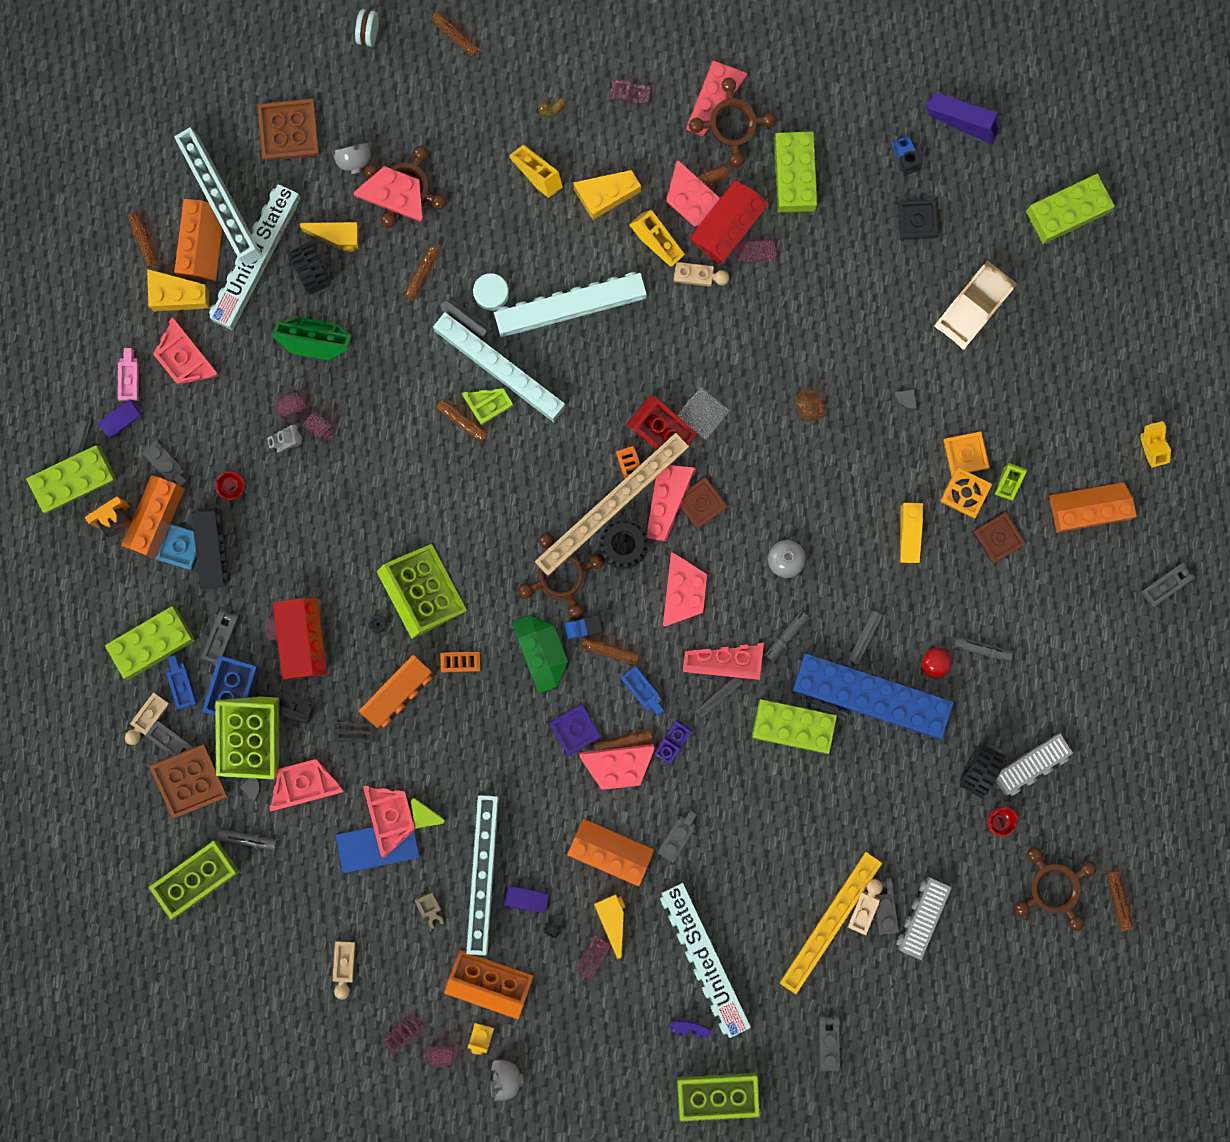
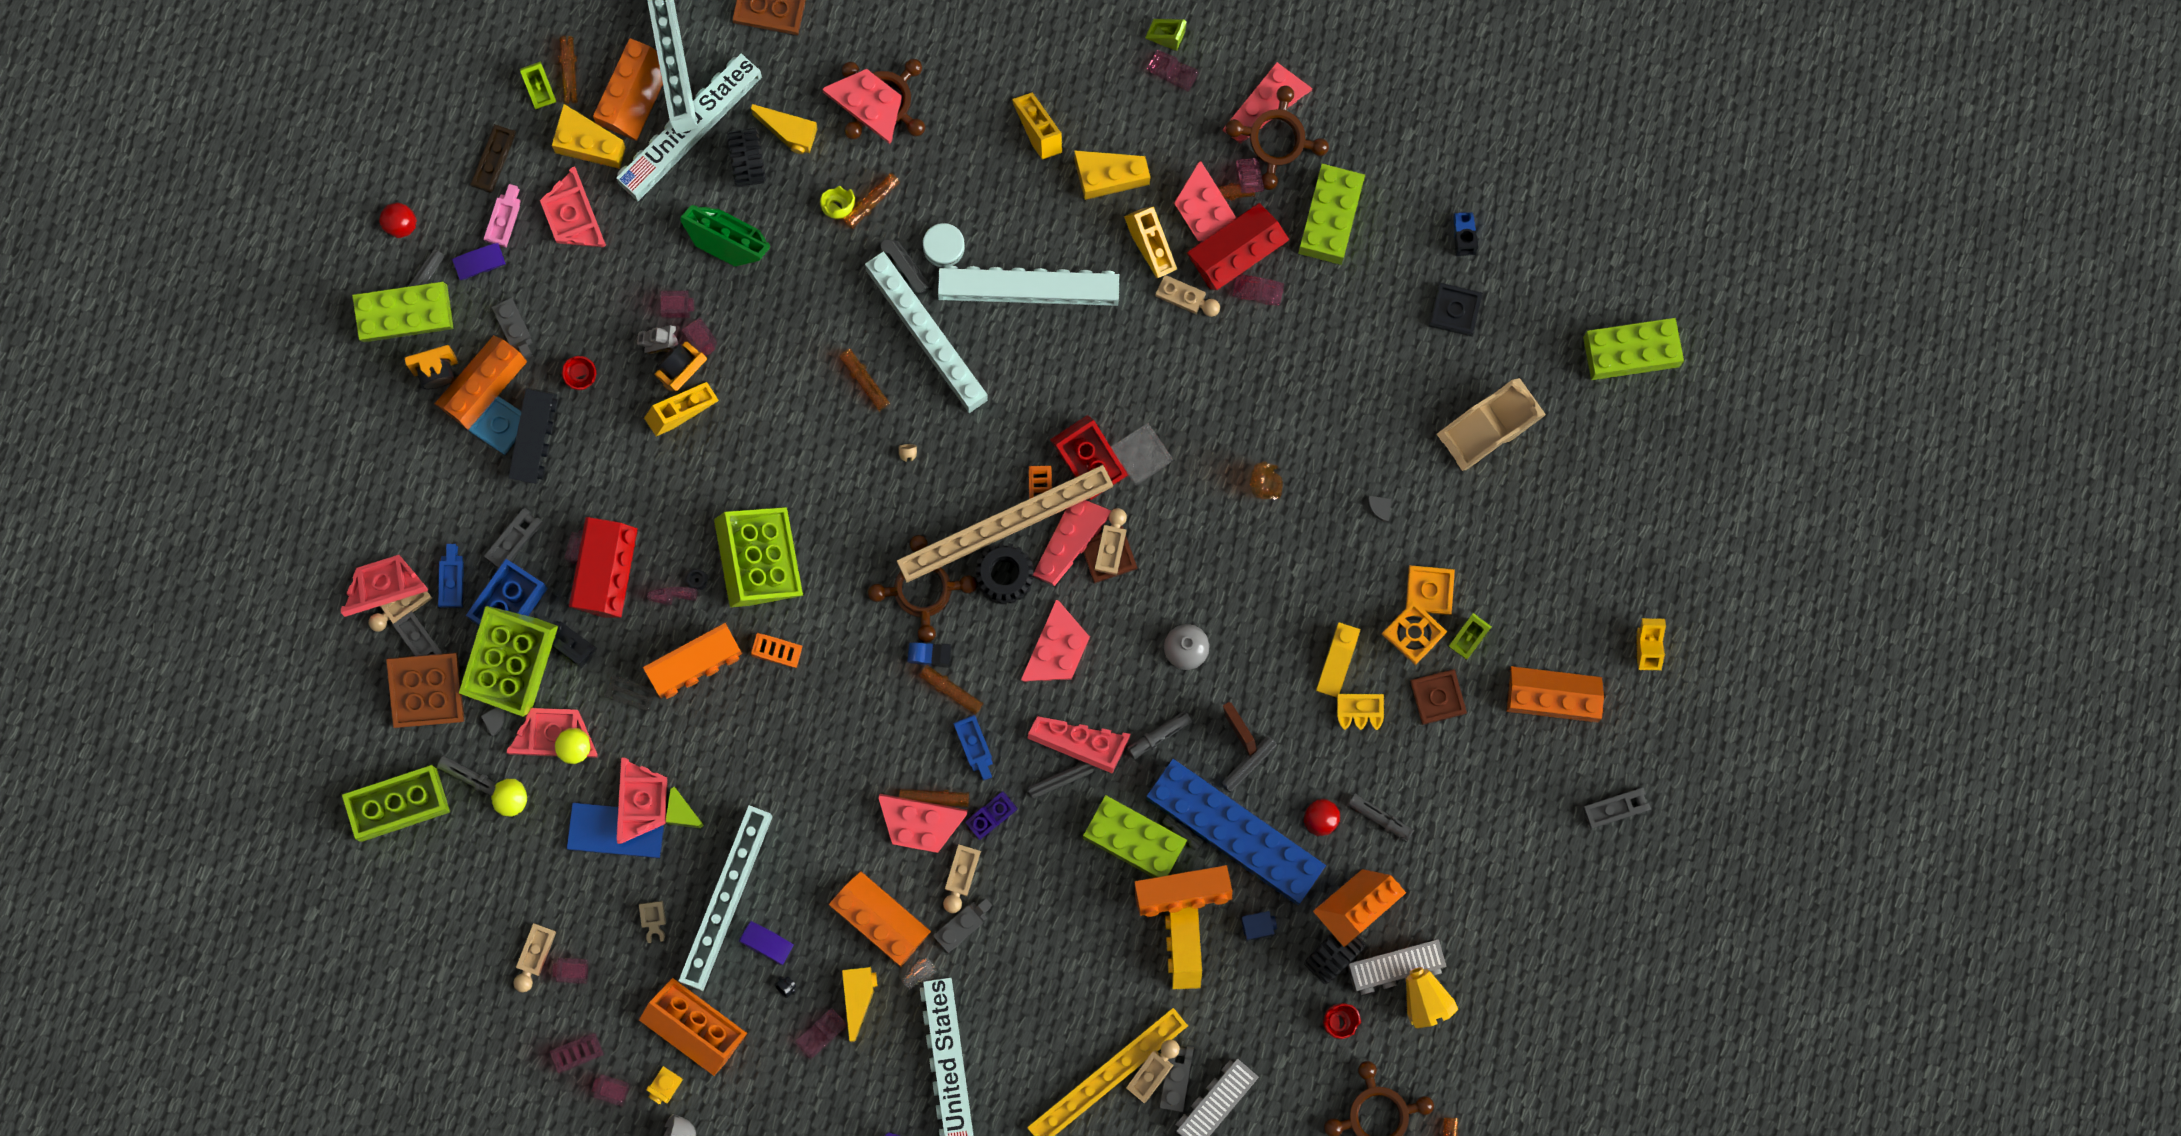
camera: 10 degrees right, 5 degrees down
(43, 405) = (397, 220): none -> red hair
(104, 331) = (493, 158): none -> dark brown tile
(121, 260) = (538, 85): none -> lime slope
(125, 706) = (381, 584): none -> coral wing
(150, 643) = (432, 522): lime brick -> none
(283, 846) = (509, 797): none -> neon yellow hair
(309, 455) = (679, 365): none -> piece
(320, 489) = (679, 408): none -> yellow slope
(321, 789) = (572, 745): none -> neon yellow hair
(353, 157) = (835, 49): light grey cylinder -> none
(358, 644) = (666, 595): none -> clear pink slope
(377, 970) = (571, 971): none -> clear pink brick
(399, 277) = (838, 194): none -> neon yellow hair
(487, 403) = (900, 369): lime wing -> none
(514, 468) = (907, 451): none -> tan hinge
(542, 651) = (873, 667): green wedge -> none
(551, 110) = (1076, 63): clear yellow arm -> none
(575, 730) = (883, 767): dark purple tile -> none
(616, 62) = (1167, 32): none -> lime slope
(656, 886) = (919, 973): none -> clear cone
(664, 799) = (960, 877): none -> tan plate
(702, 494) = (1111, 543): none -> tan plate
(719, 160) = (1249, 175): none -> clear pink slope
(846, 758) = (1183, 891): none -> orange slope
(851, 612) = (1240, 728): none -> copper tile
(860, 801) = (1184, 948): none -> yellow wedge
(913, 765) = (1258, 925): none -> dark blue brick
(941, 566) = (1360, 708): none -> yellow plate
(965, 117) = (1544, 210): dark purple slope -> none
(990, 726) = (1358, 904): none -> orange slope
(1067, 785) = (1427, 999): none -> yellow cone

